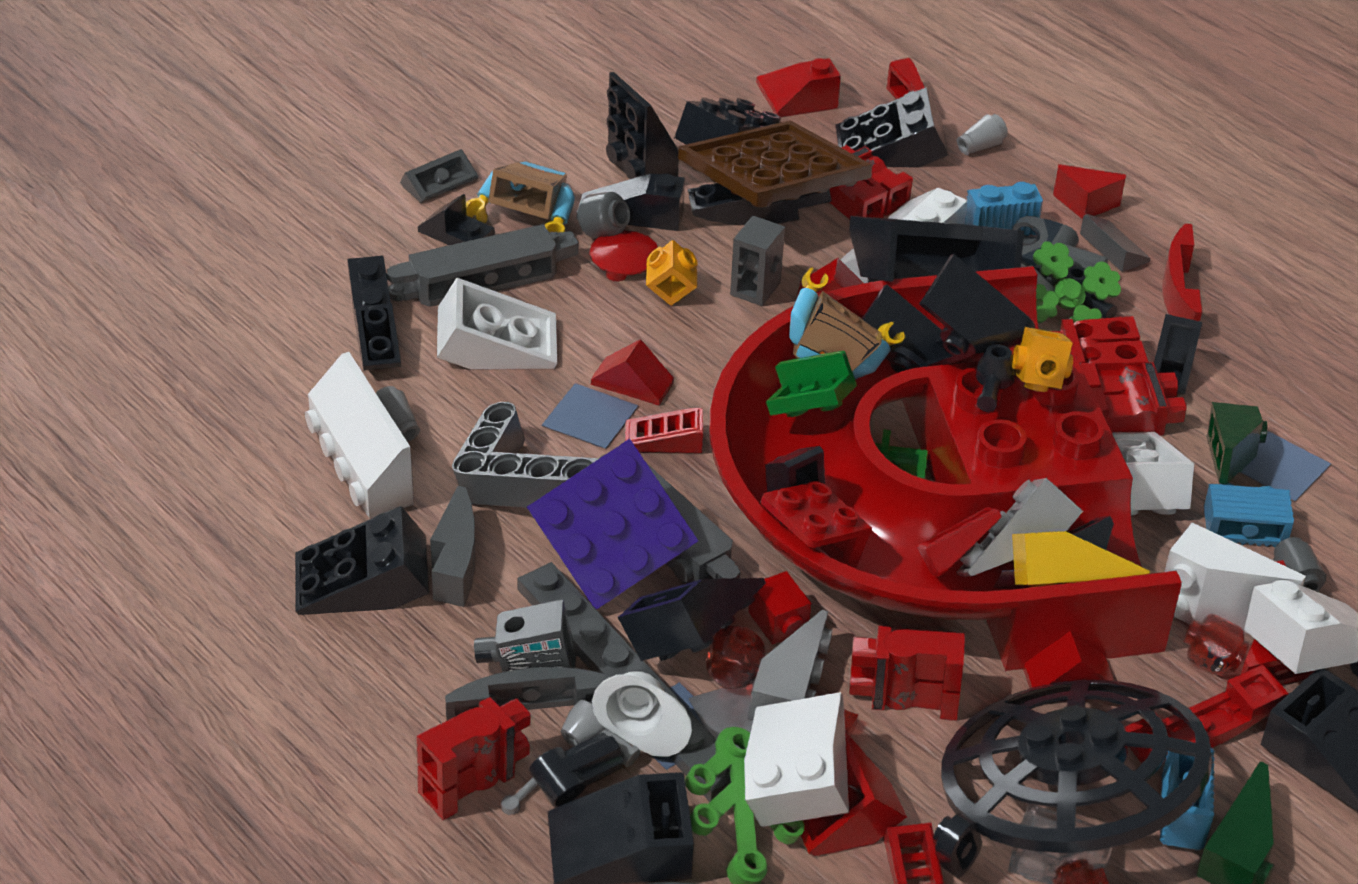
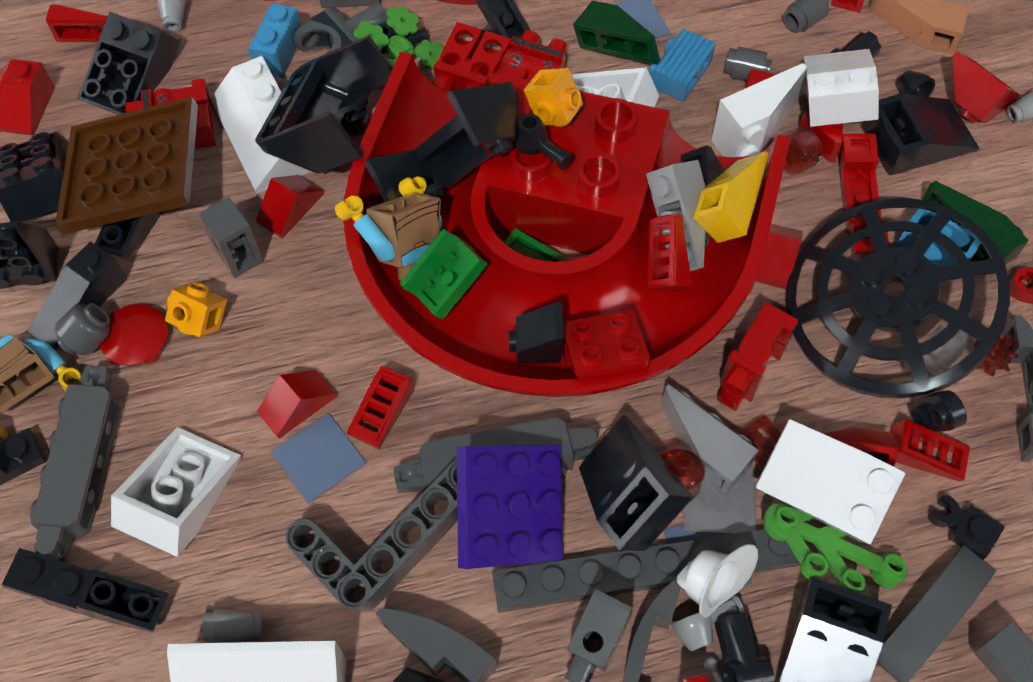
camera: 60 degrees left, 20 degrees up
(780, 607) = (639, 408): red brick -> none

